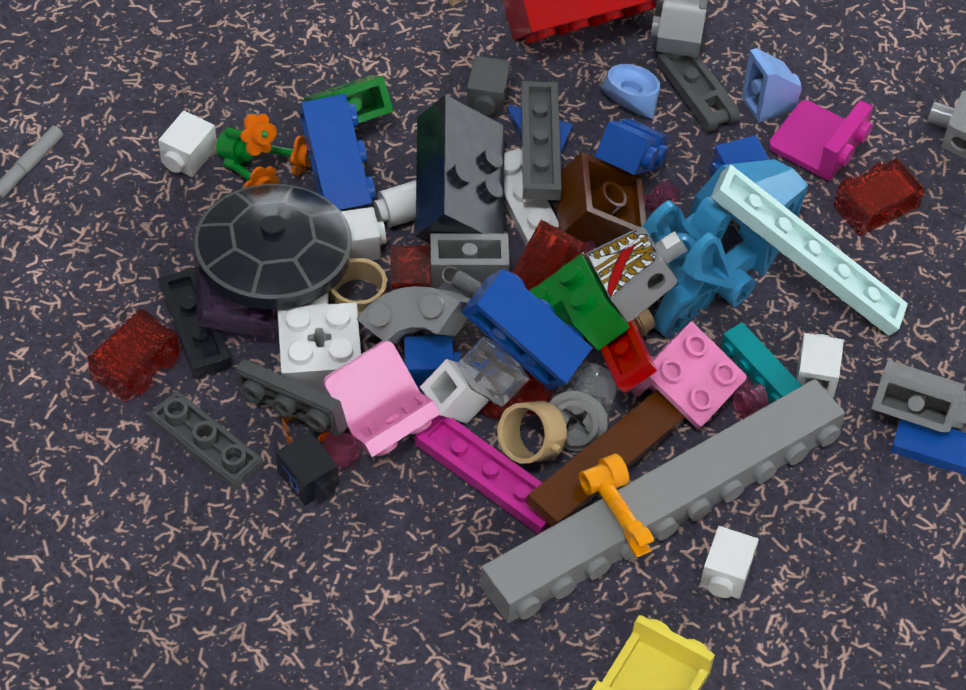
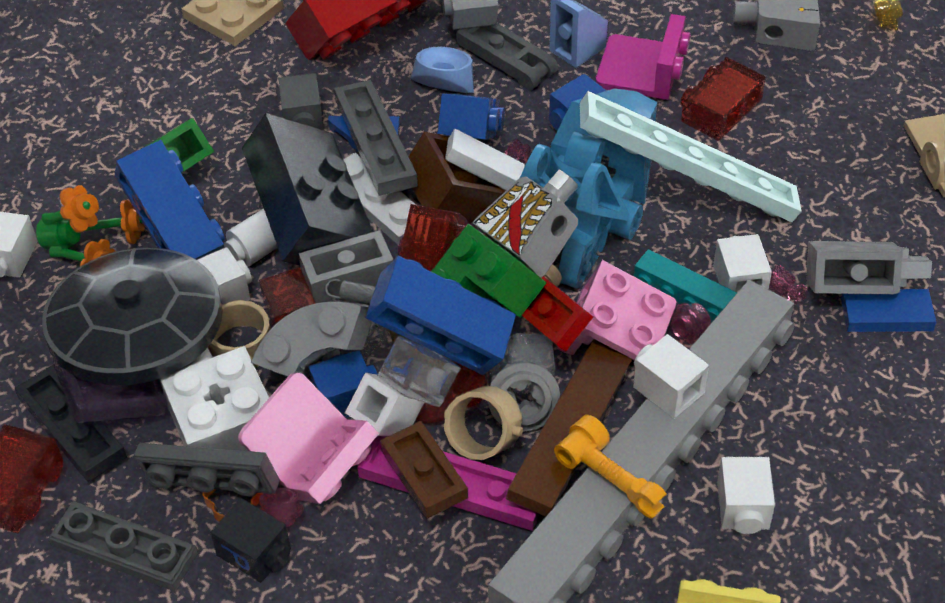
camera: 15 degrees left, 5 degrees down
(466, 455) = (424, 469): none -> reddish brown plate
(624, 192) = (482, 160): none -> white tile
(702, 443) = (670, 375): none -> white brick
(851, 391) = (783, 283): none -> clear pink piece

